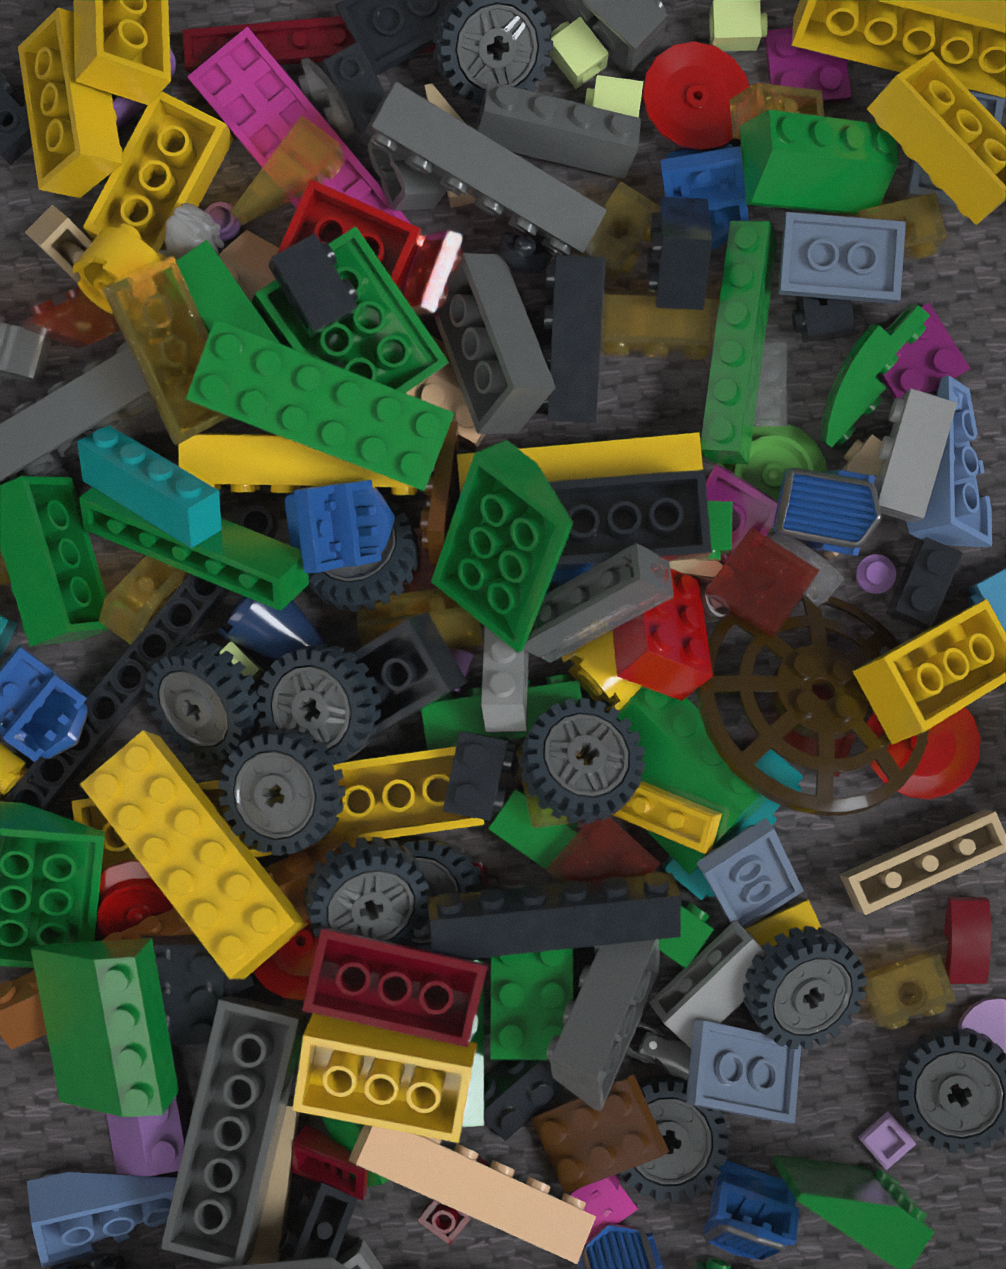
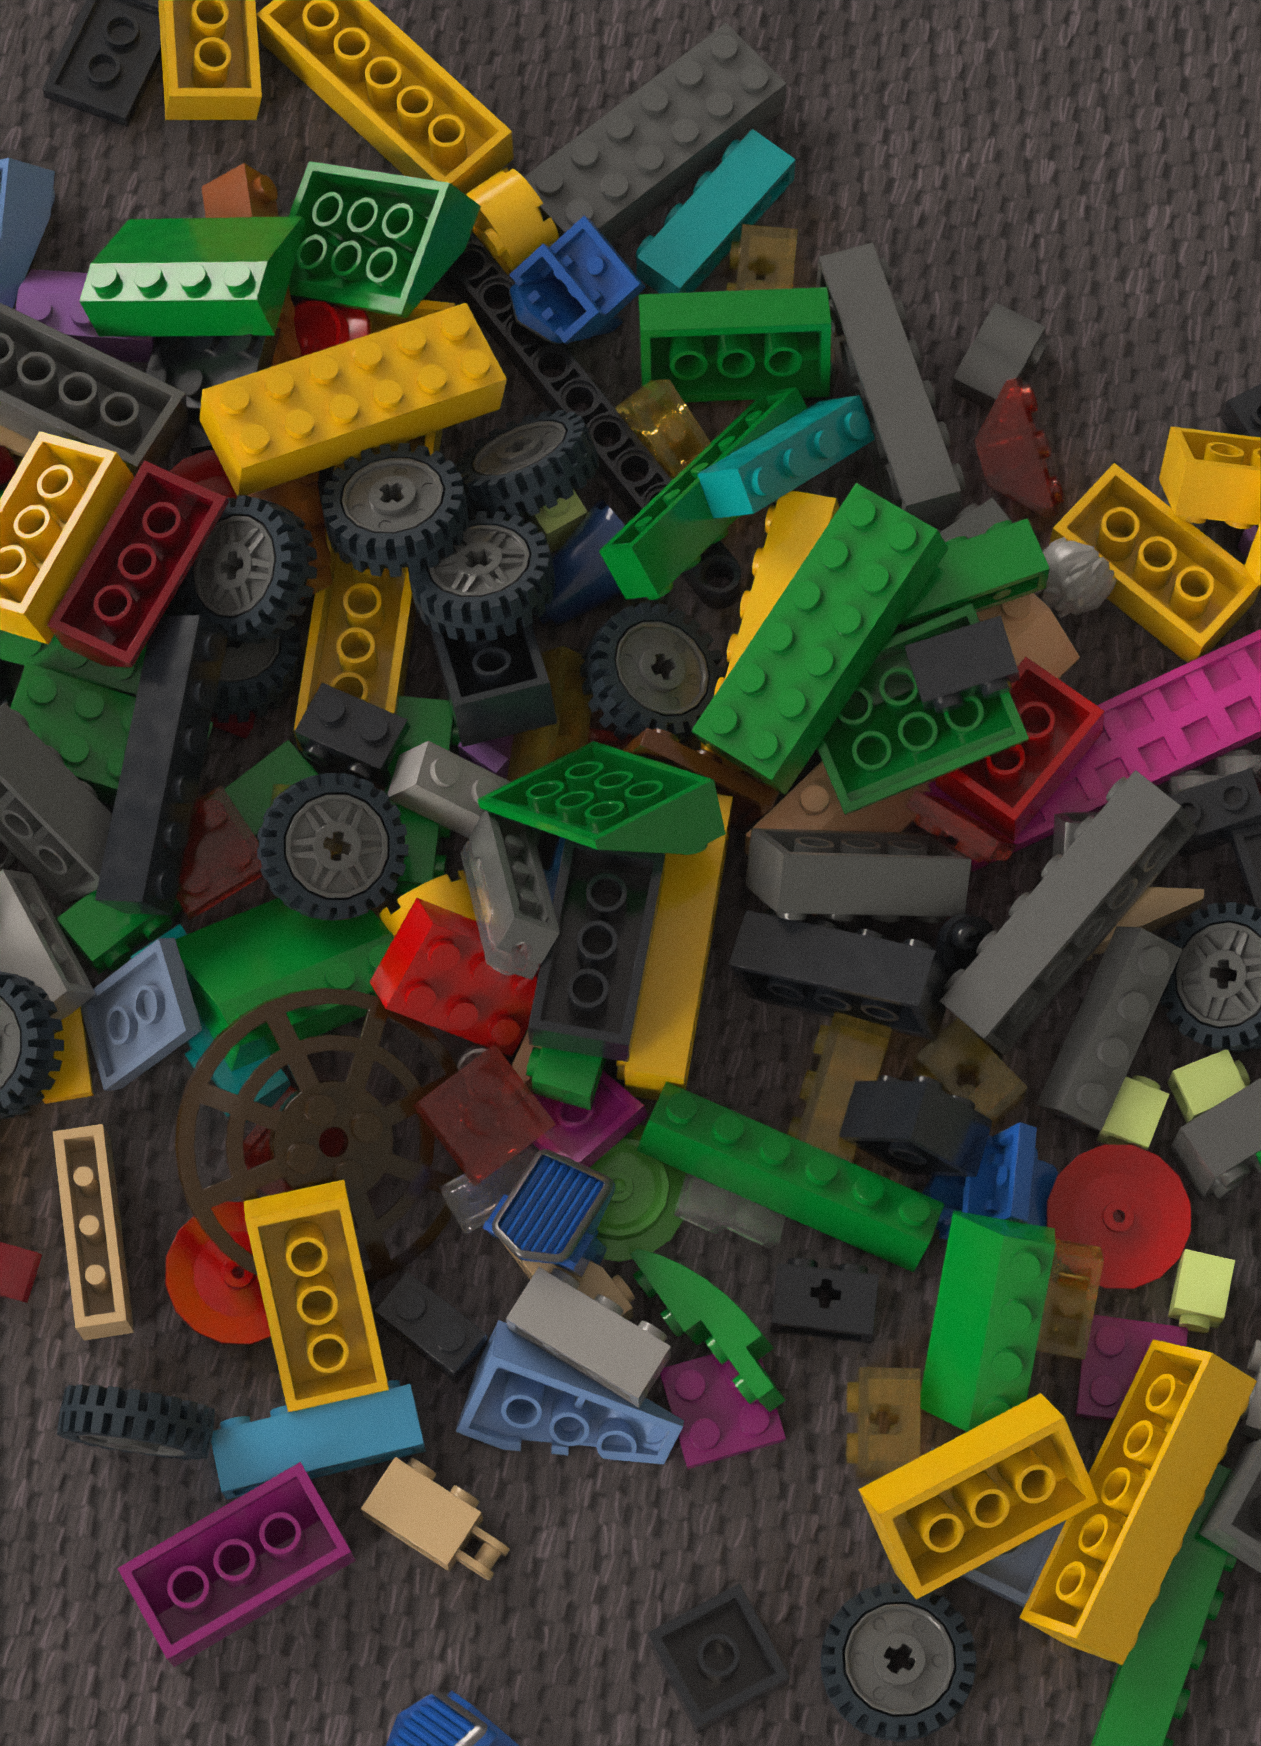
camera: 105 degrees right, 15 degrees down
(59, 239) = (1106, 440): tan slope -> none
(109, 257) = (1045, 484): yellow brick -> none
(165, 341) = (951, 485): clear yellow slope -> none
(221, 215) = (1096, 630): medium lavender plate -> none
(301, 156) = (1136, 718): clear yellow slope -> none
(338, 525) = (680, 641): blue piece -> none
(671, 817) = (239, 934): yellow tile -> none
(842, 258) = (861, 1321): sand blue plate -> none
(875, 574) = (461, 1279): medium lavender plate -> none

